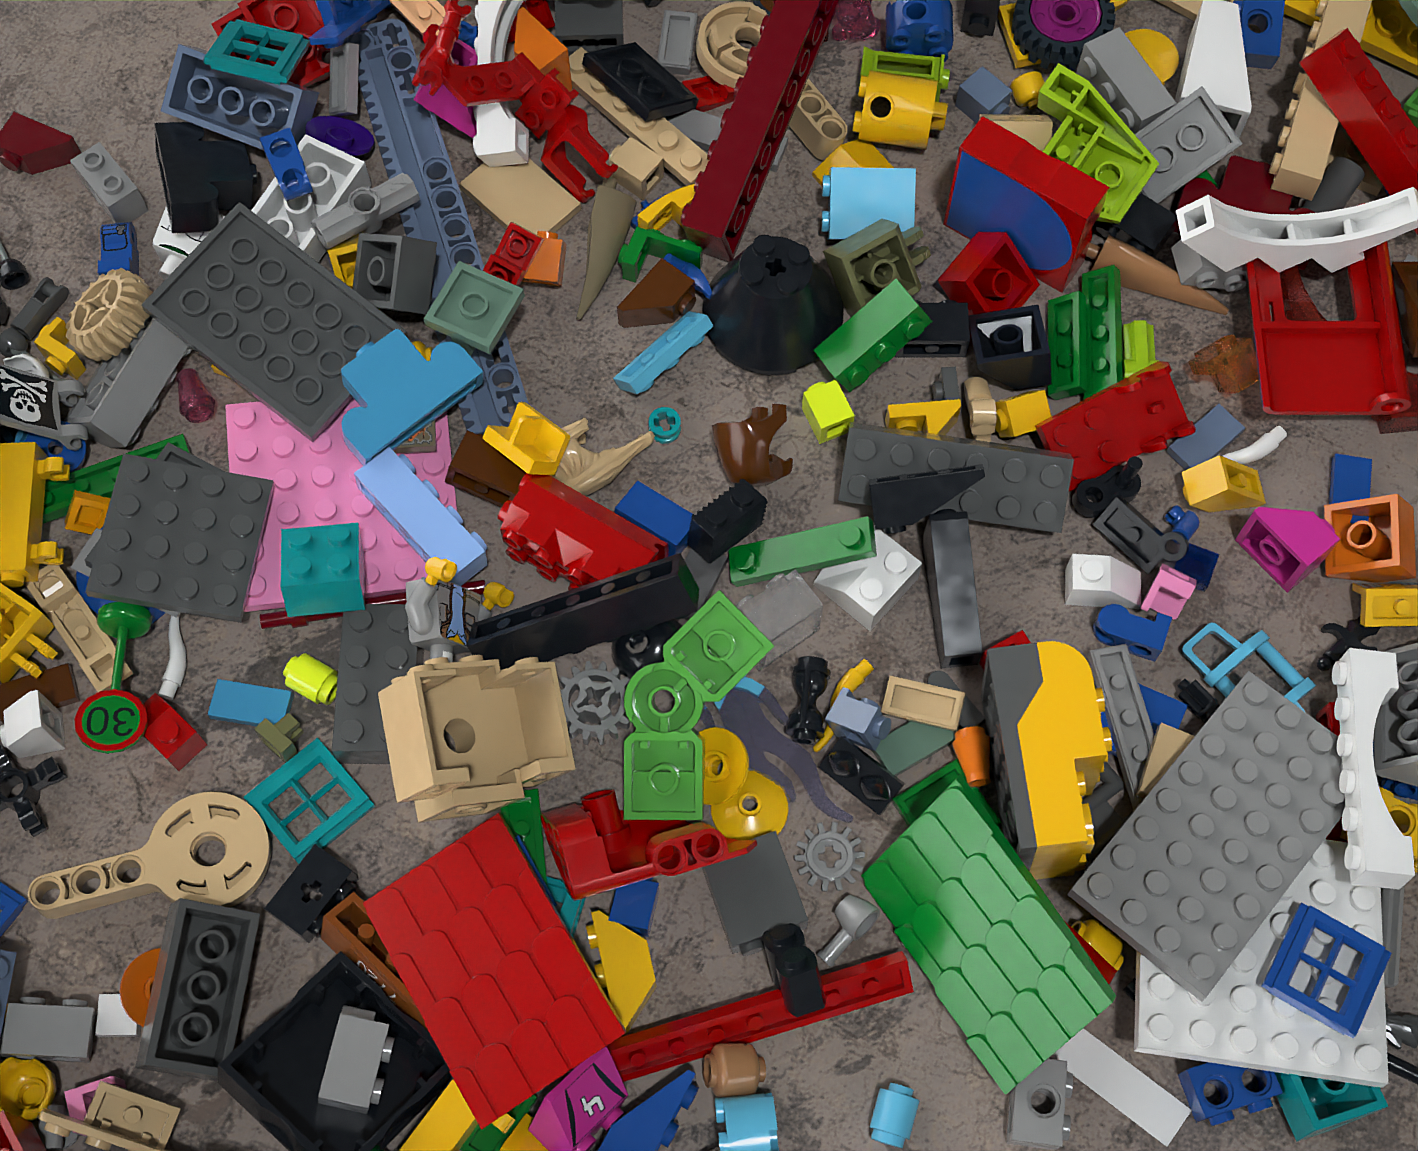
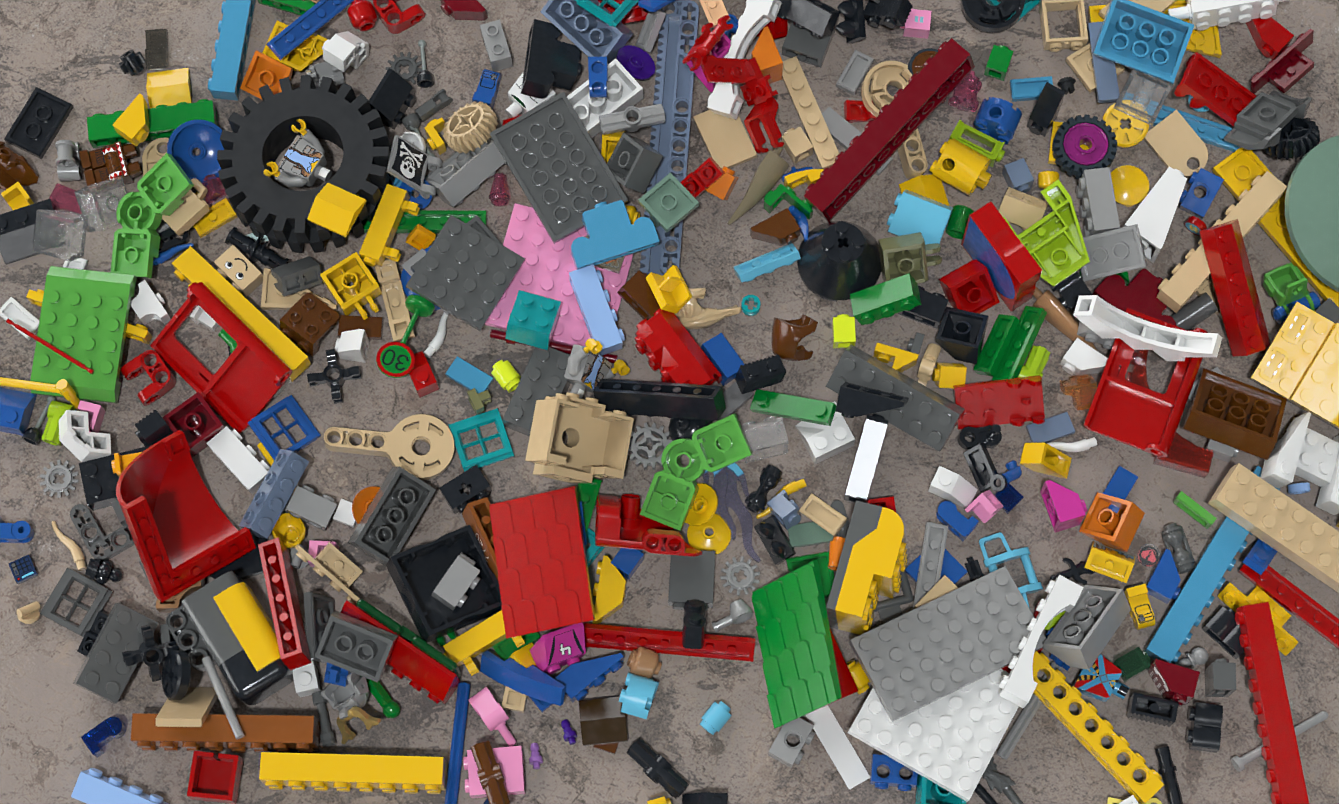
camera: 25 degrees right, 5 degrees up
(640, 81) = (820, 92): black tile -> none
(931, 189) = (958, 221): none -> green piece
(1207, 317) = (1083, 359): none -> white slope
(1270, 76) = (1195, 225): none -> red tile
(1361, 987) = (976, 749): blue piece -> none

